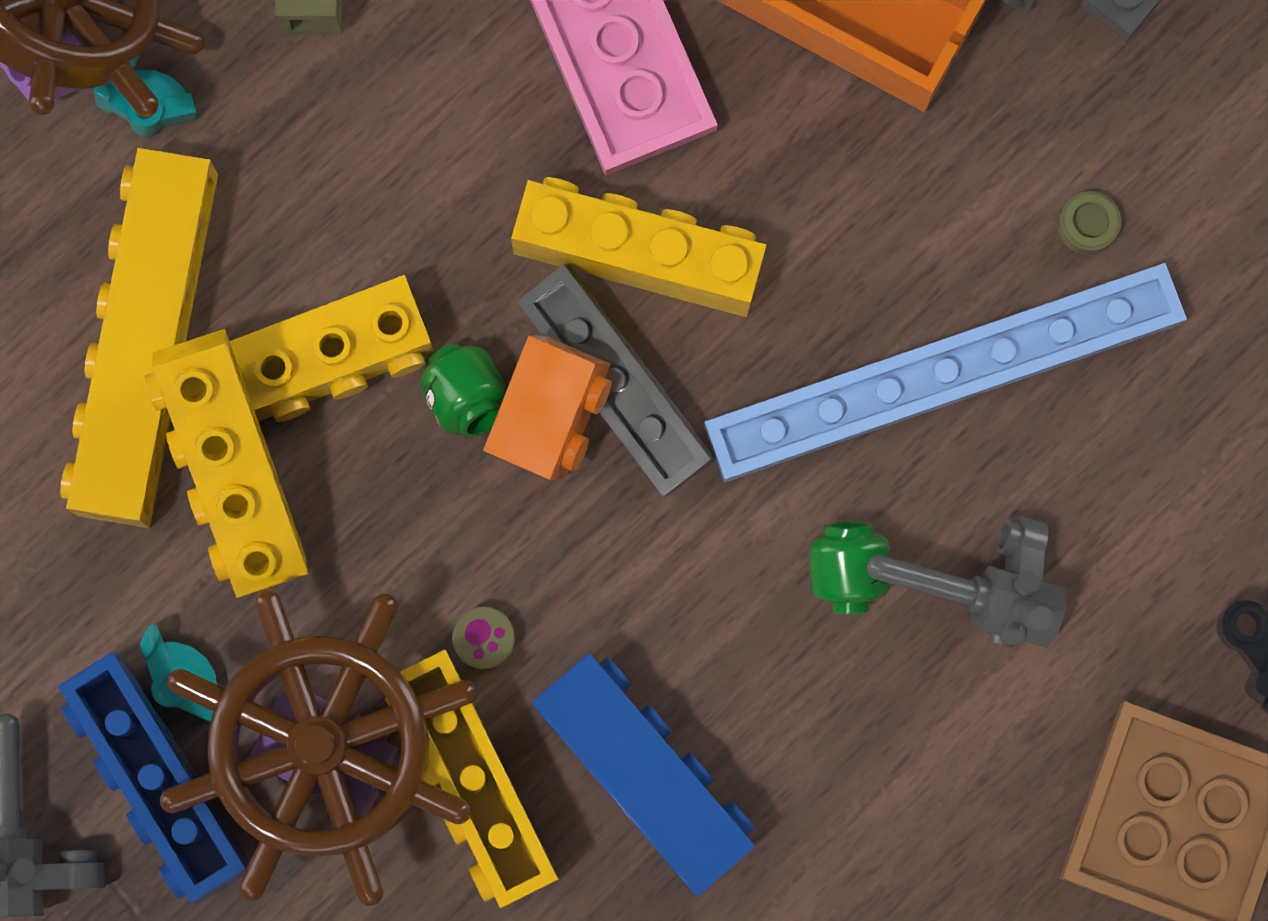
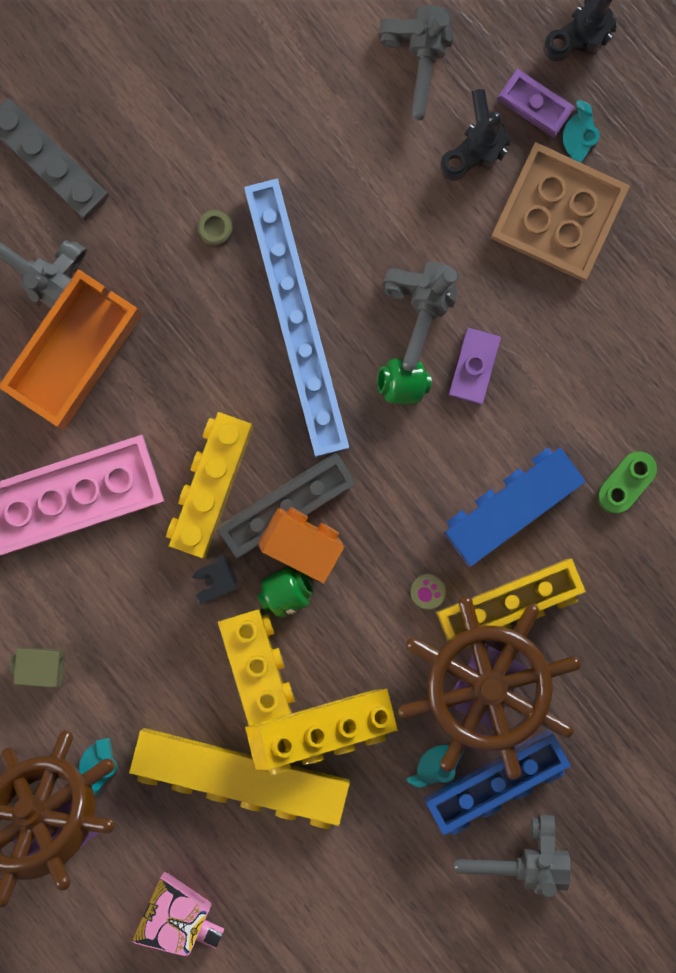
camera: 85 degrees left, 5 degrees up
(478, 275) = (222, 580): none -> black hinge
(889, 691) = (474, 366): none -> medium lavender plate

